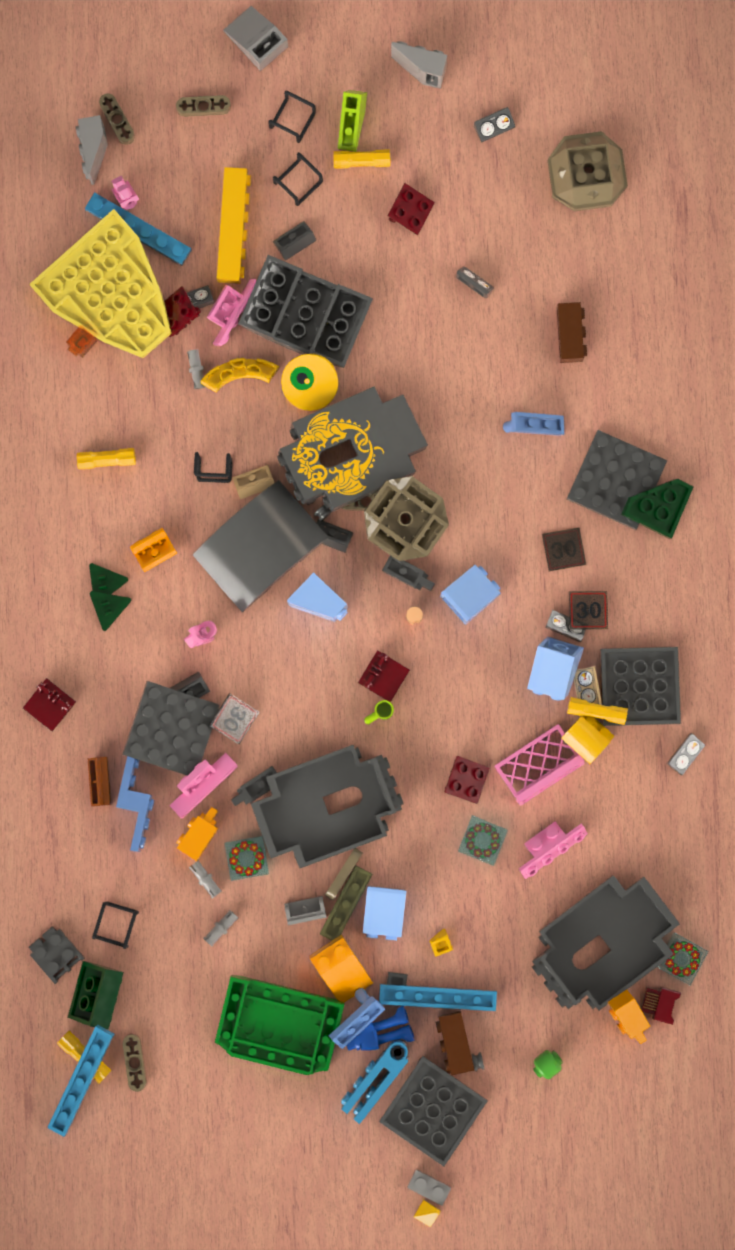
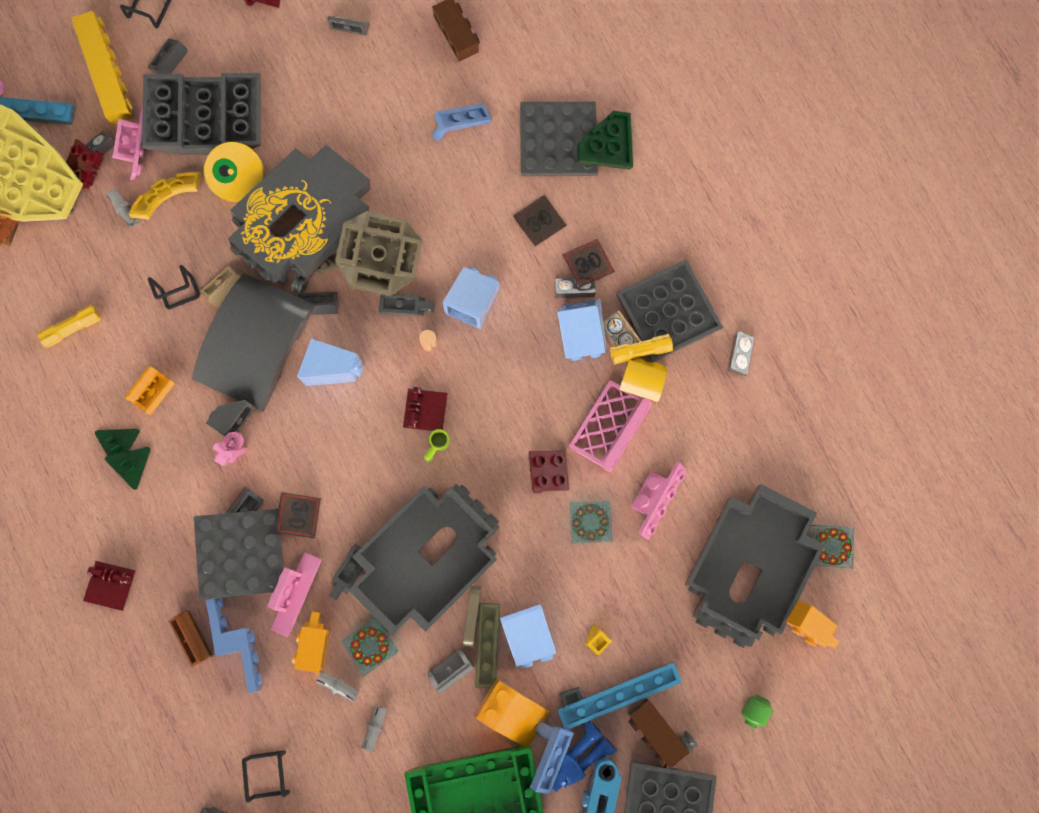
camera: 30 degrees left, 5 degrees down
(212, 606) = (230, 417): none -> dark grey slope
(660, 1003) = (834, 599): dark red piece -> none

